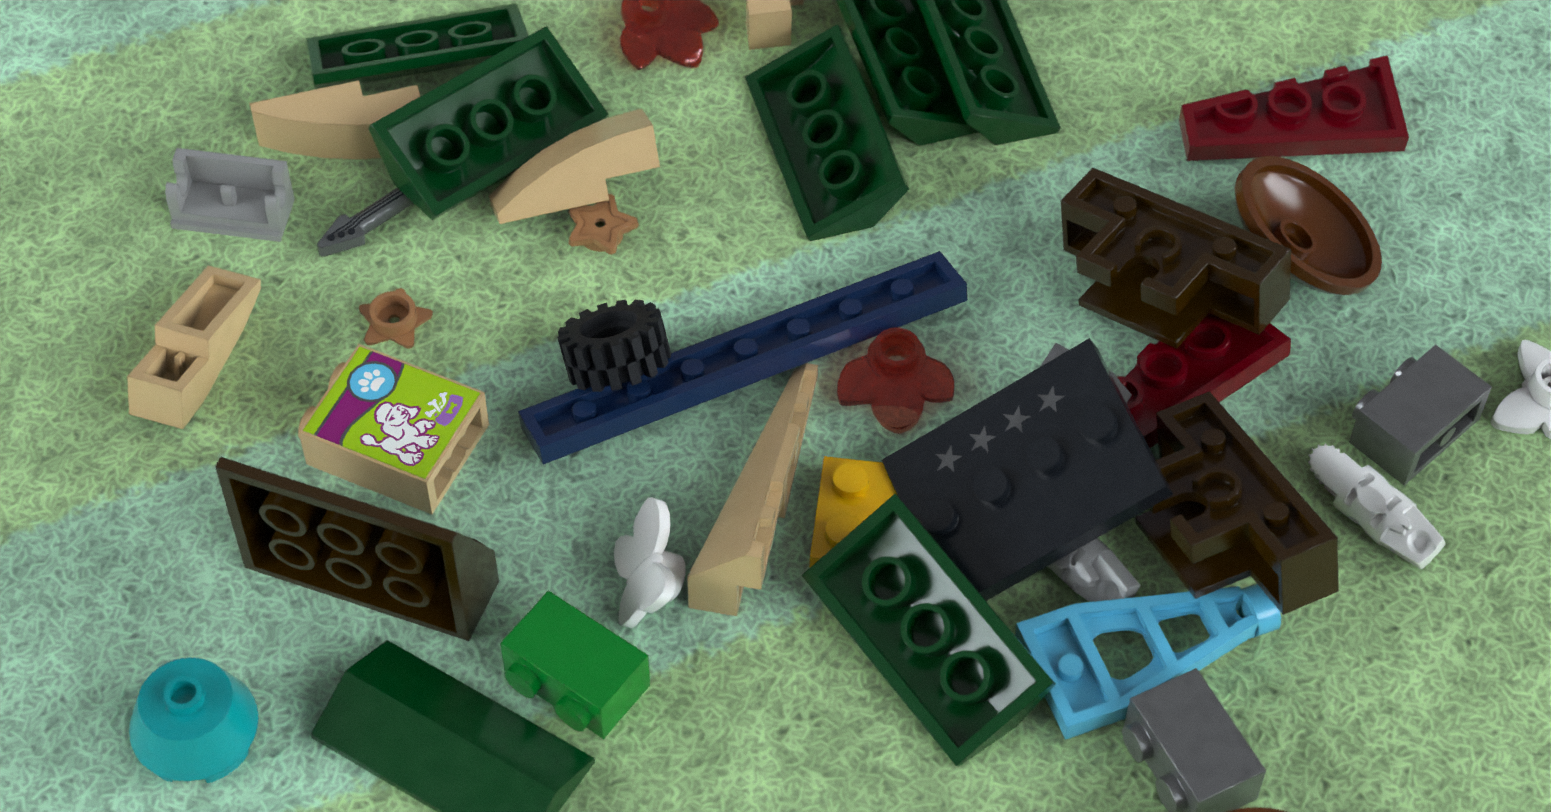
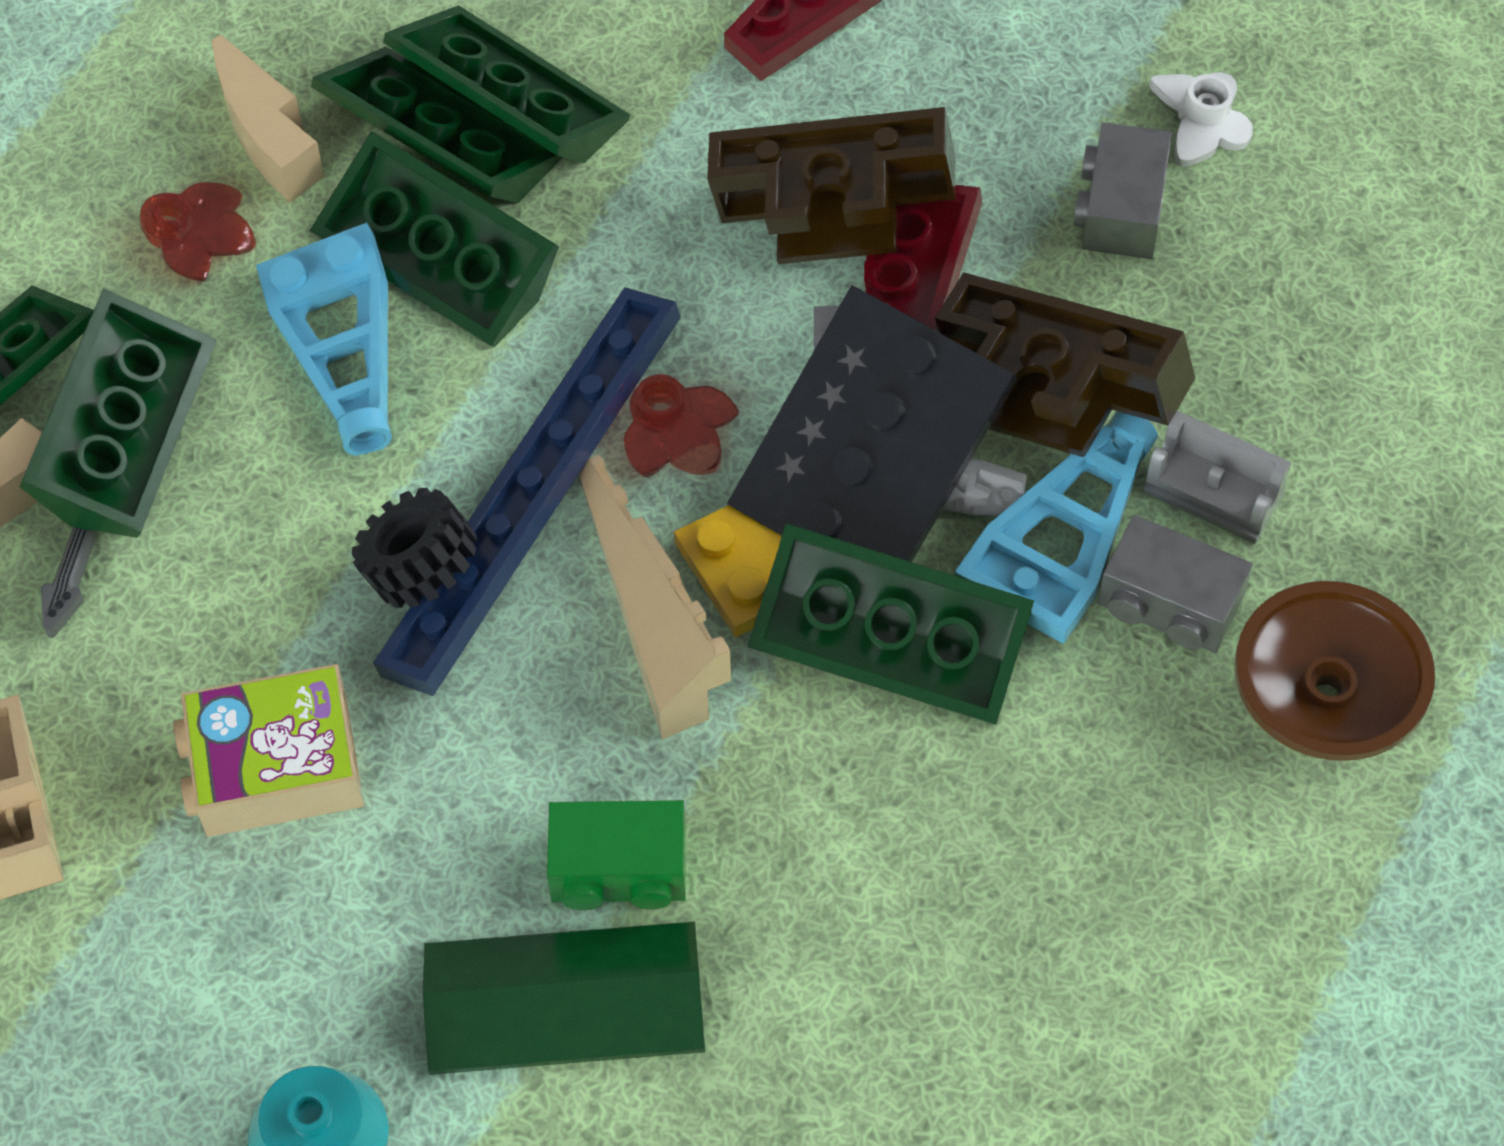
camera: 35 degrees left, 5 degrees up
(358, 551) = (348, 881): dark brown slope -> none
(391, 305) = (169, 636): medium nougat plate -> none
(577, 168) = (237, 406): tan slope -> none
(605, 237) = (300, 461): medium nougat plate -> none
(650, 571) = (611, 727): white animal -> none
(705, 110) = (318, 277): none -> medium azure plate
(1303, 688) = (1216, 477): none -> light grey hinge
(1311, 216) = (911, 72): reddish brown dish -> none
(1376, 506) = (1153, 289): white hinge -> none

